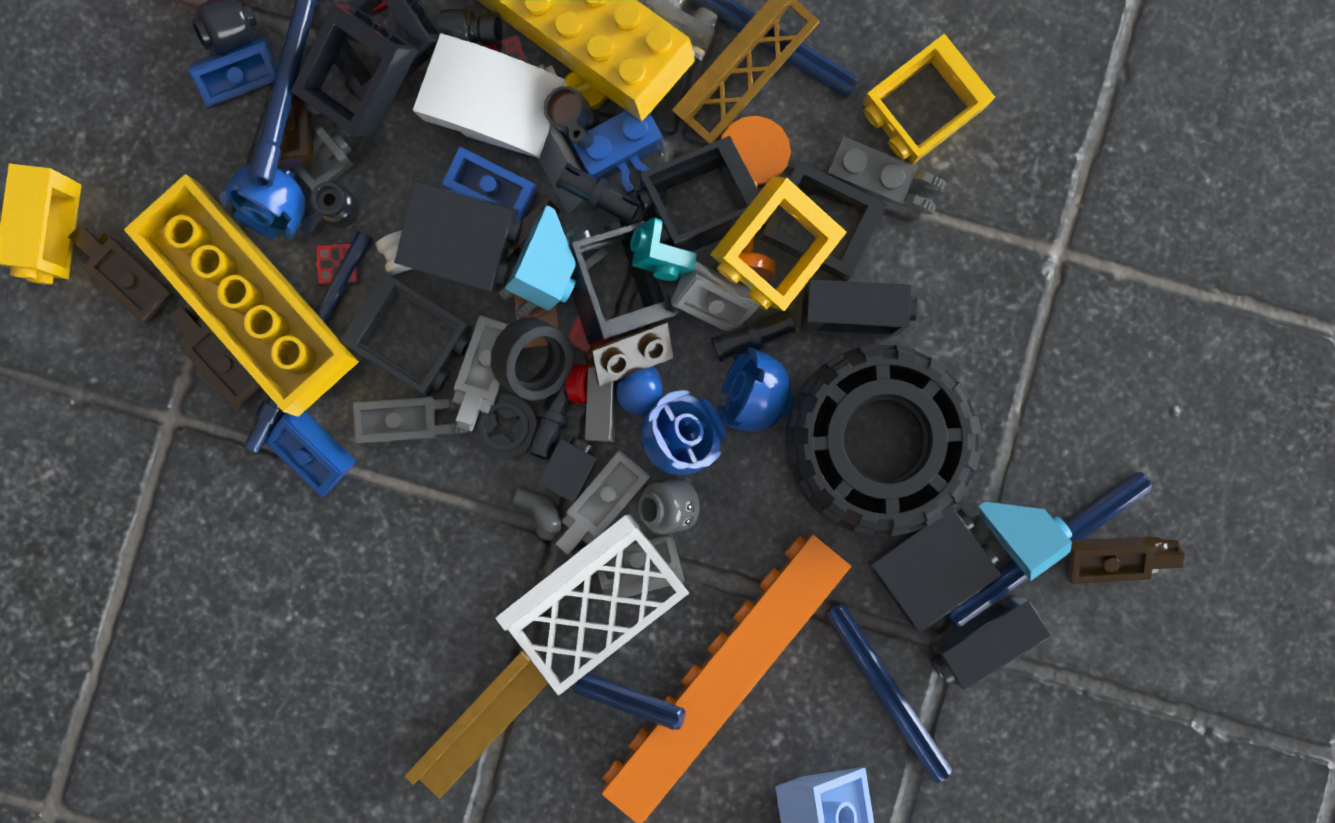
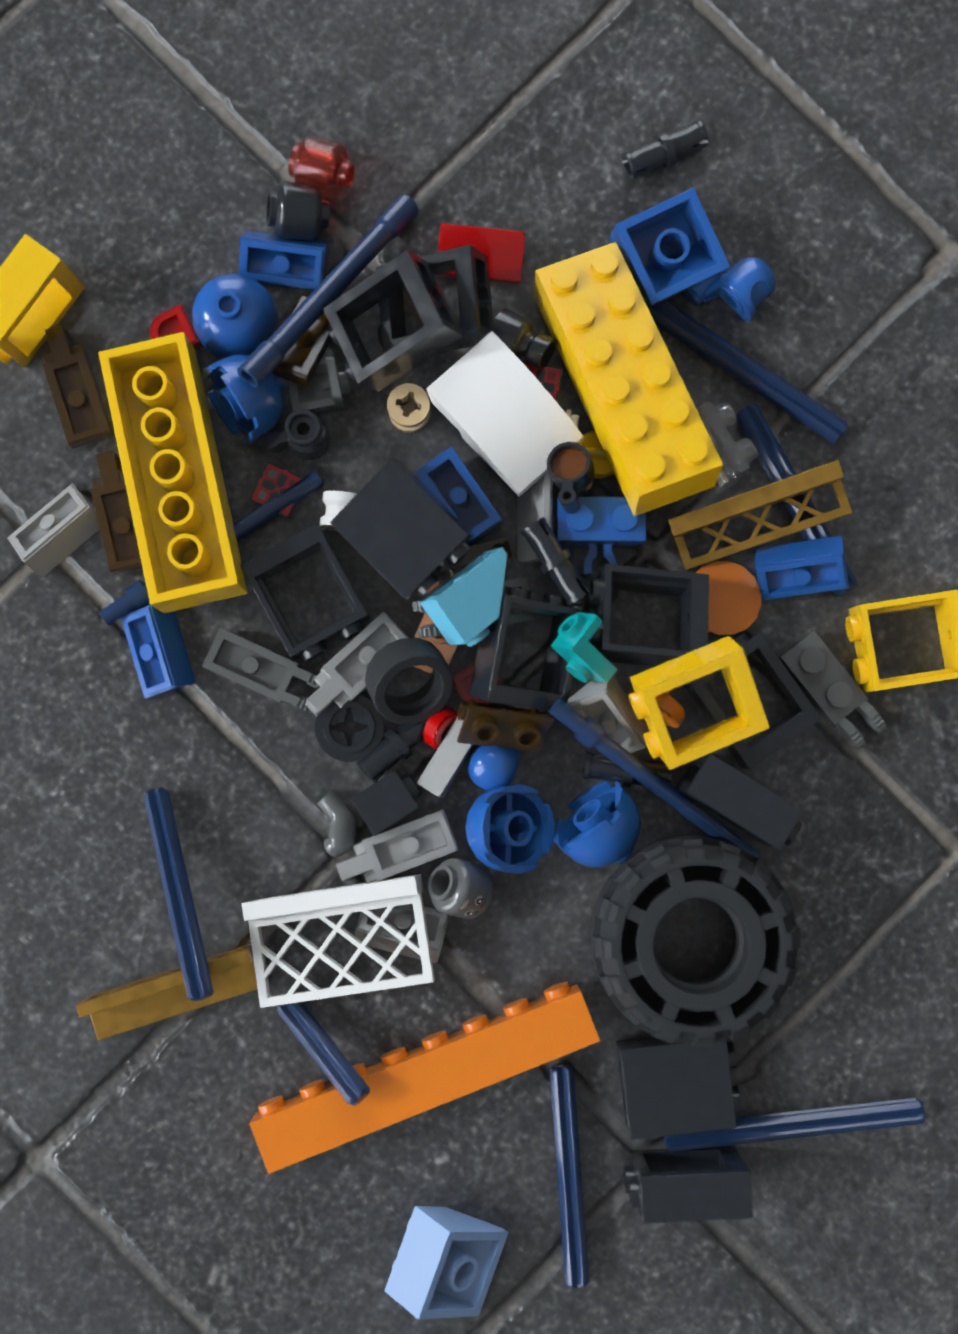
camera: 25 degrees right, 0 degrees up
(170, 399) = (55, 531): none -> light grey slope
(171, 172) = (172, 322): none -> red tile
(218, 139) = (233, 315): none -> blue cylinder
(412, 144) = (408, 417): none -> tan wheel
(438, 639) = (178, 895): none -> dark blue axle
(705, 319) = (592, 733): none -> dark blue bar
(804, 90) = (801, 568): none -> blue slope
(1027, 535) = (781, 1103): medium azure slope -> none
(1121, 559) = (857, 1173): dark brown hinge -> none

